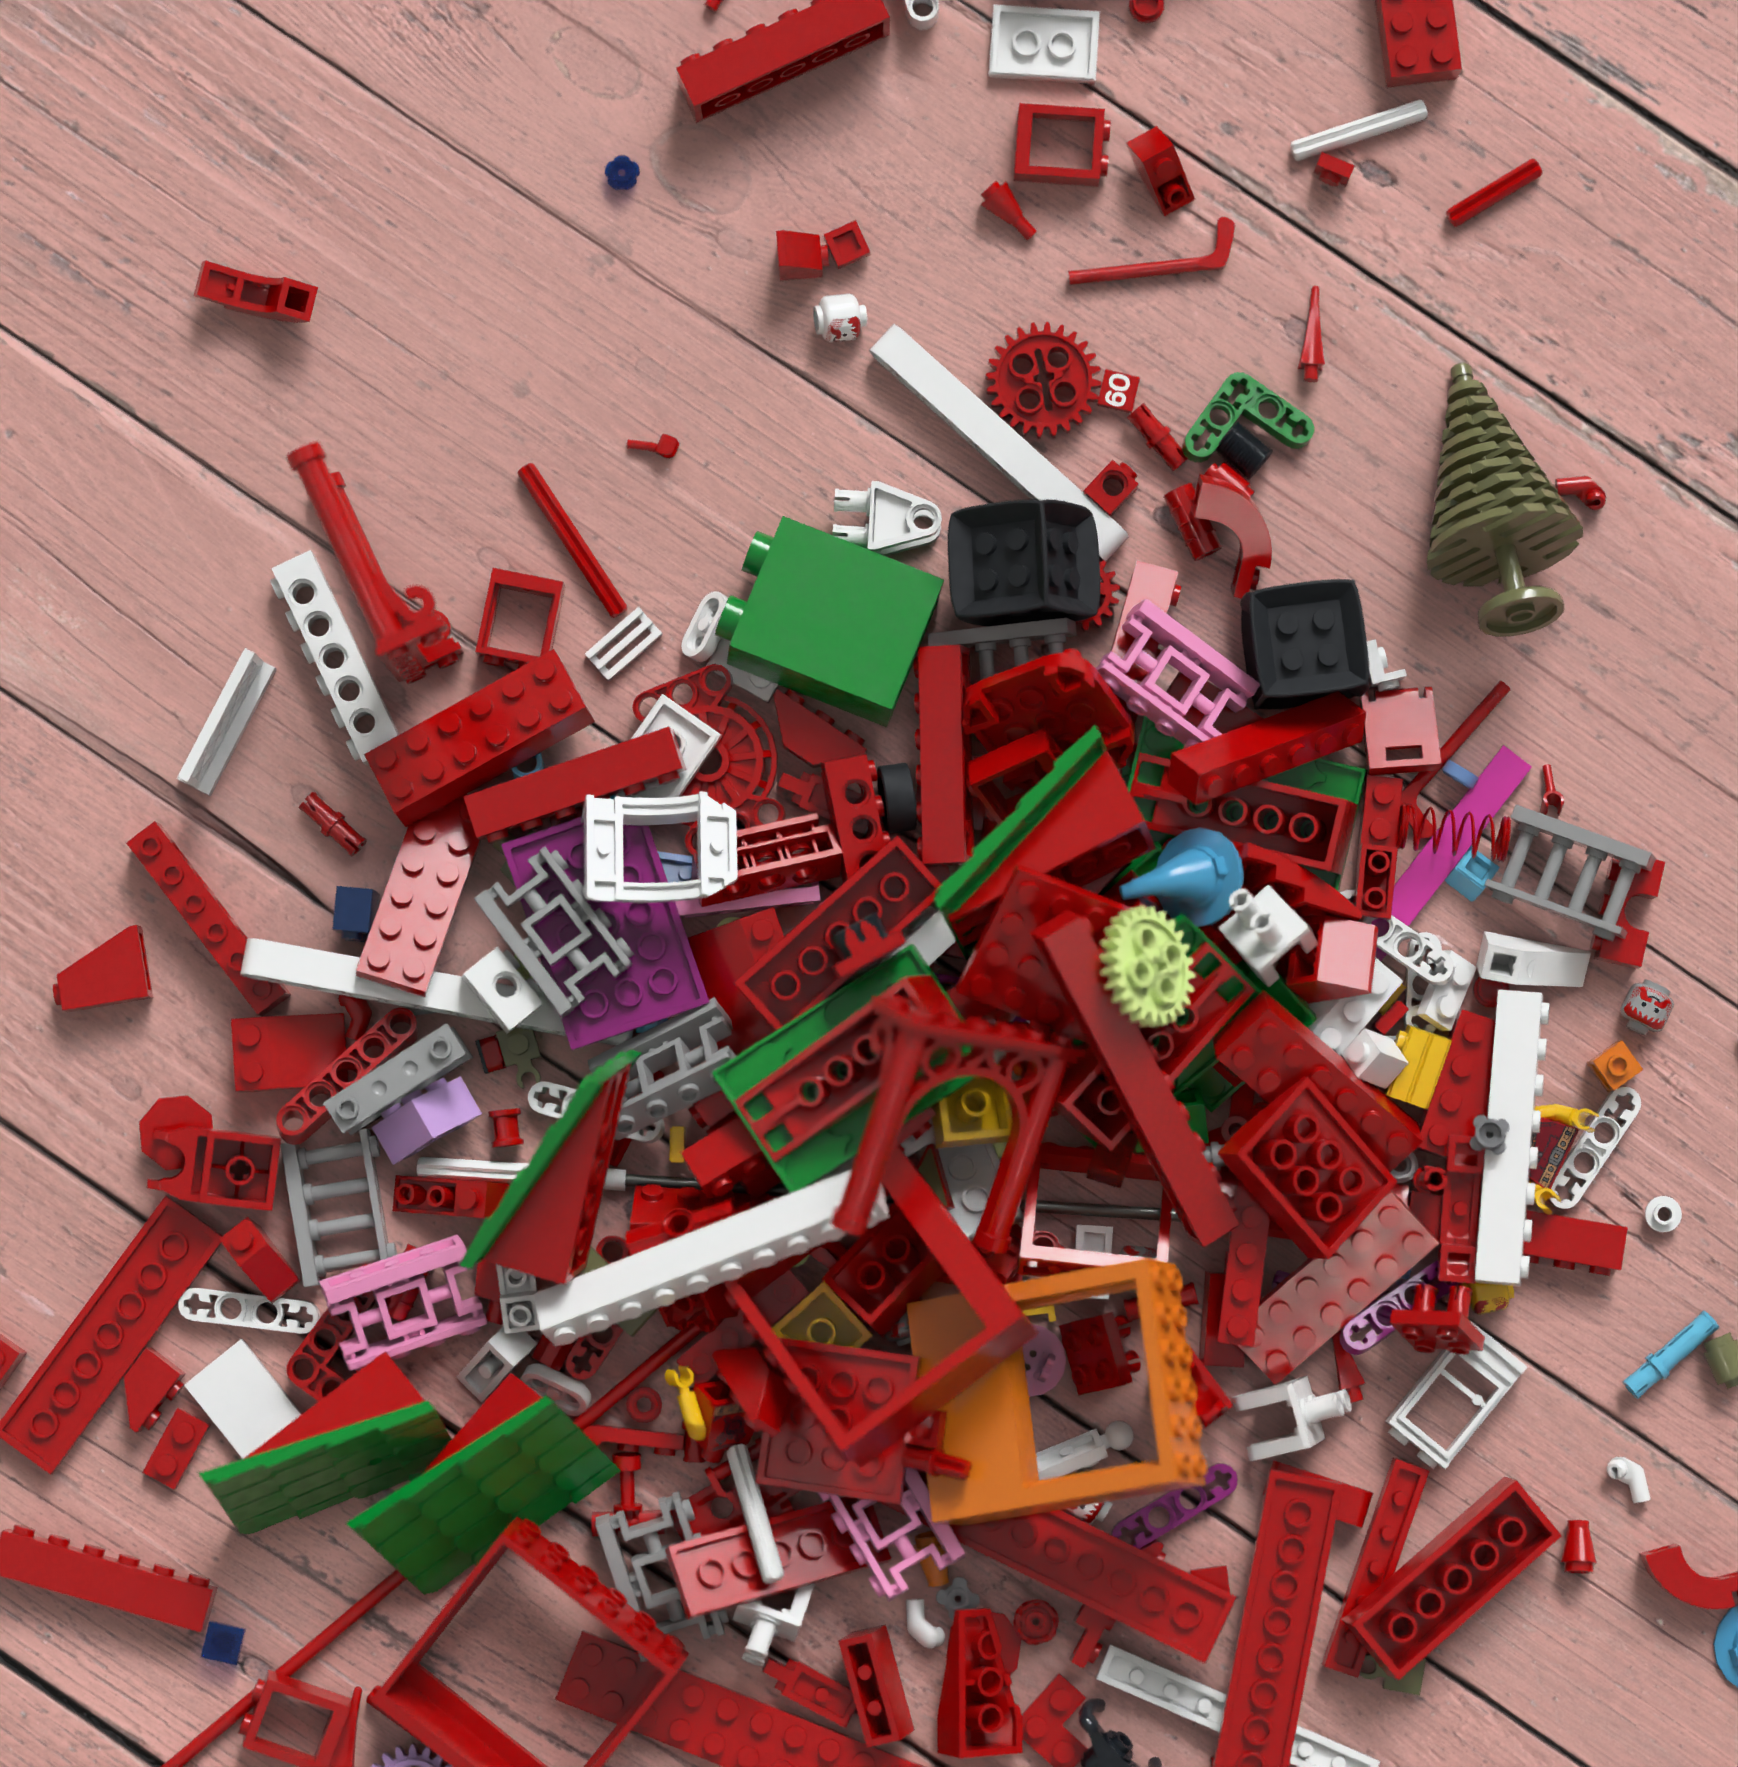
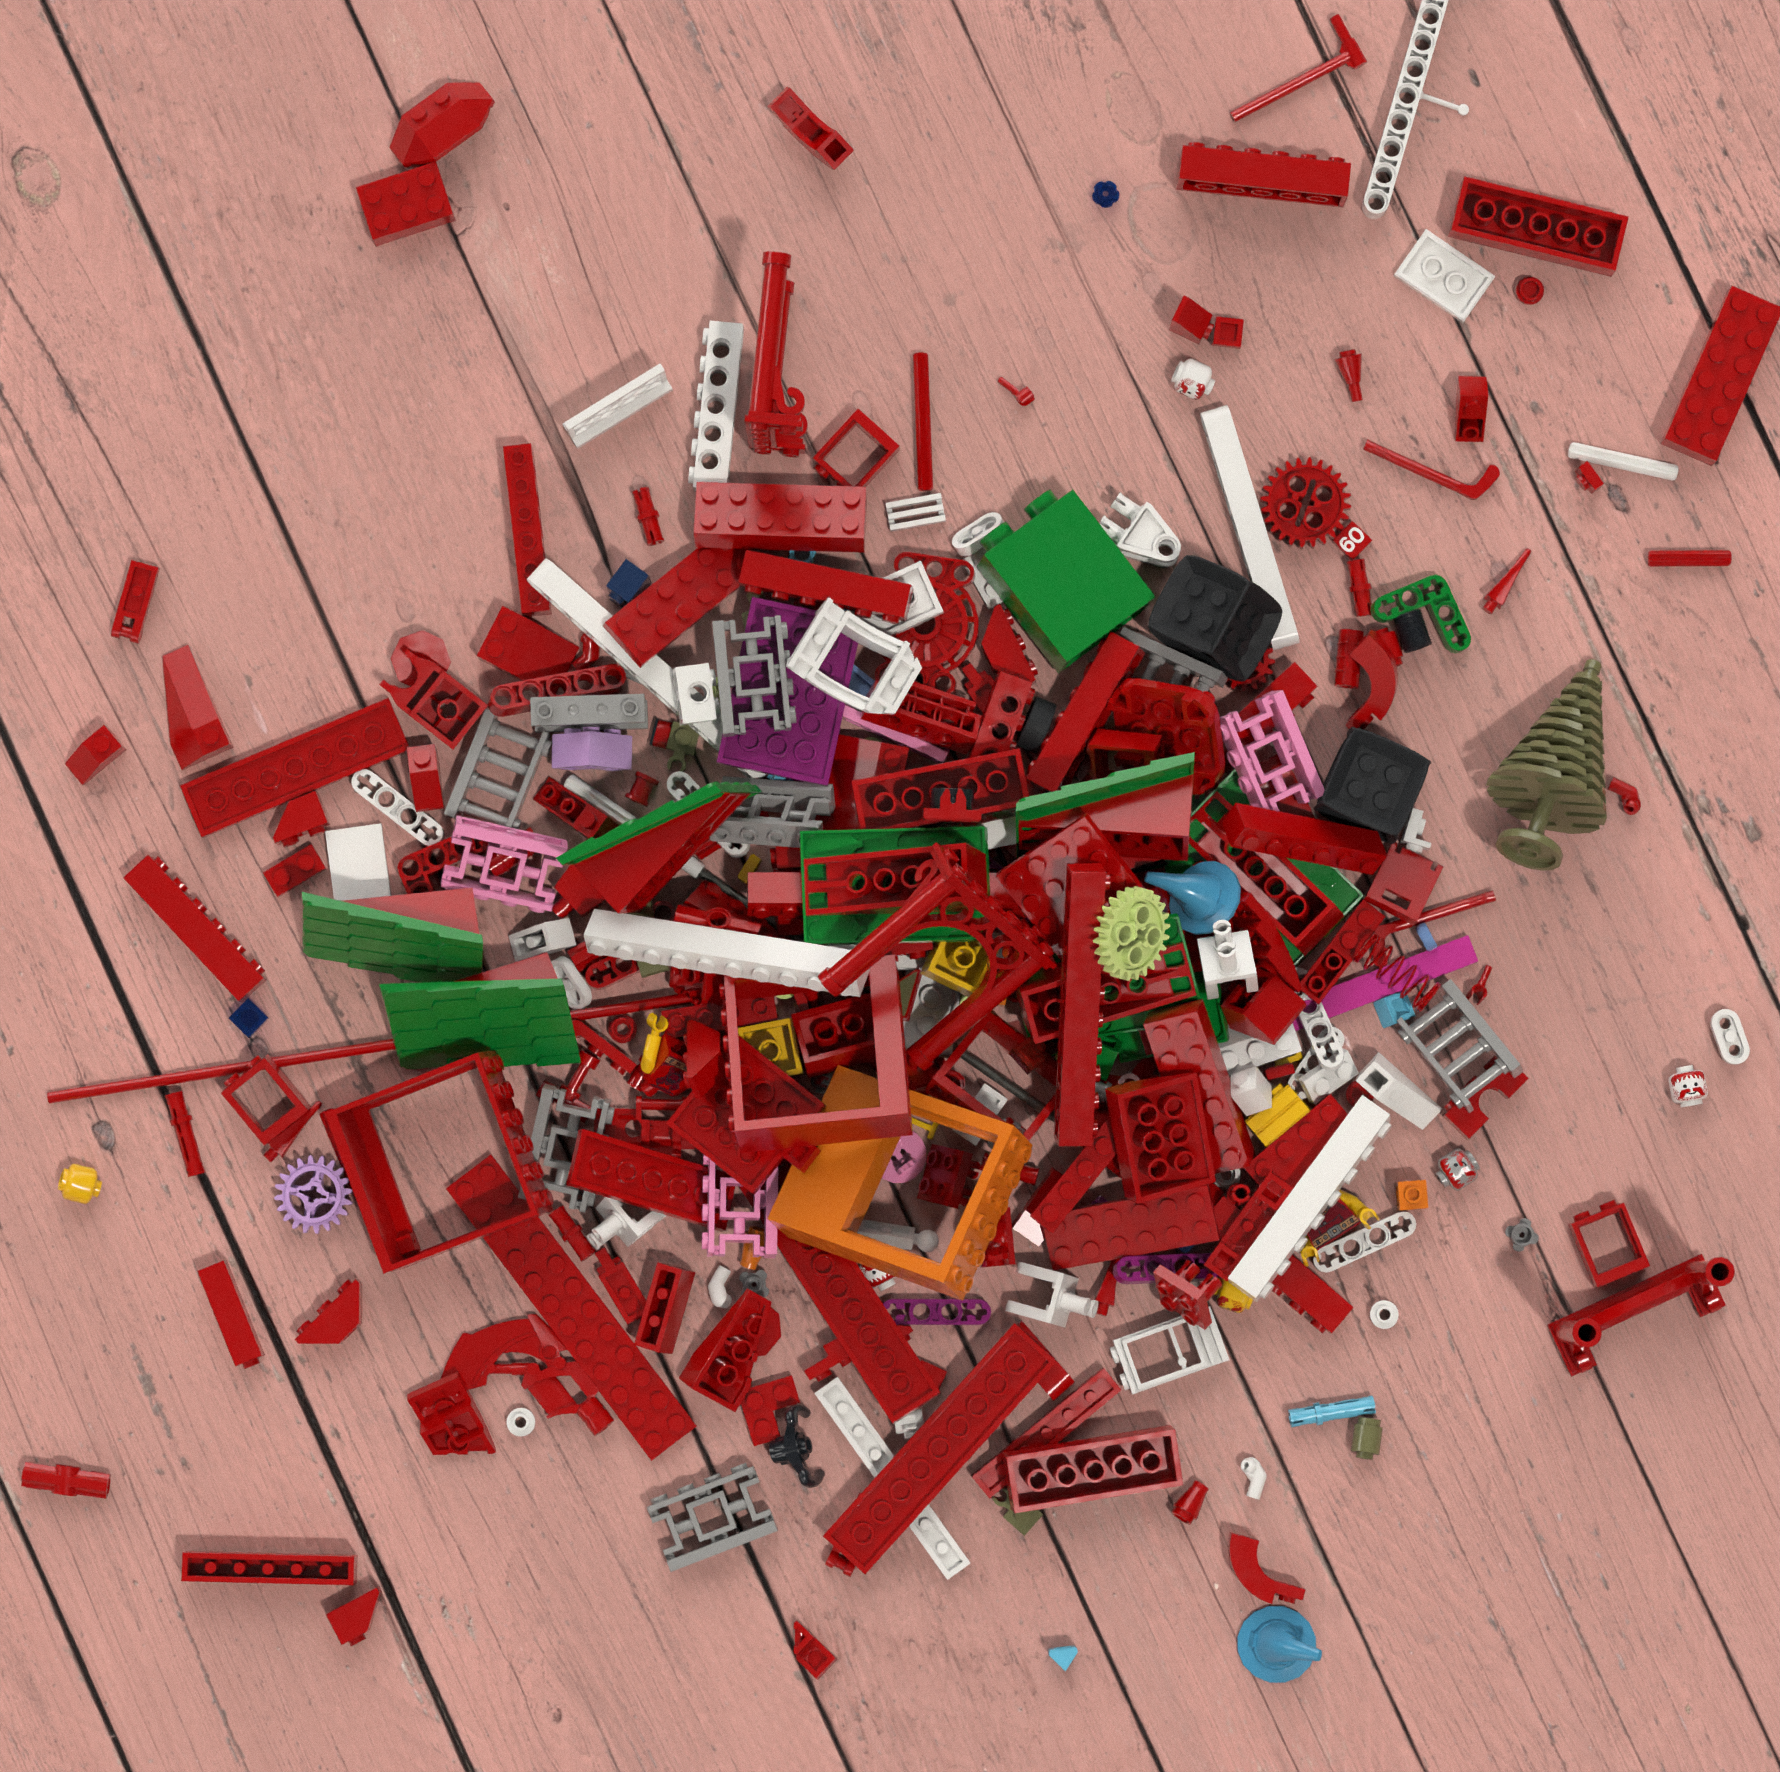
camera: 35 degrees right, 0 degrees up
(107, 975) = (437, 527): red slope -> none
(517, 1300) = (580, 906): white slope -> none
(724, 1664) = (572, 1233): none -> red pin
(755, 1513) = (653, 1143): white axle -> none
(935, 1462) = (793, 1179): red axle -> none
(1039, 1633) = (793, 1340): red plate -> none
(1055, 175) = (1377, 352): red window -> none
(1121, 473) = (1301, 614): red brick -> none
(1223, 1650) = (910, 1424): none -> white gear
(1481, 1141) = (1296, 1179): flat silver plate -> none

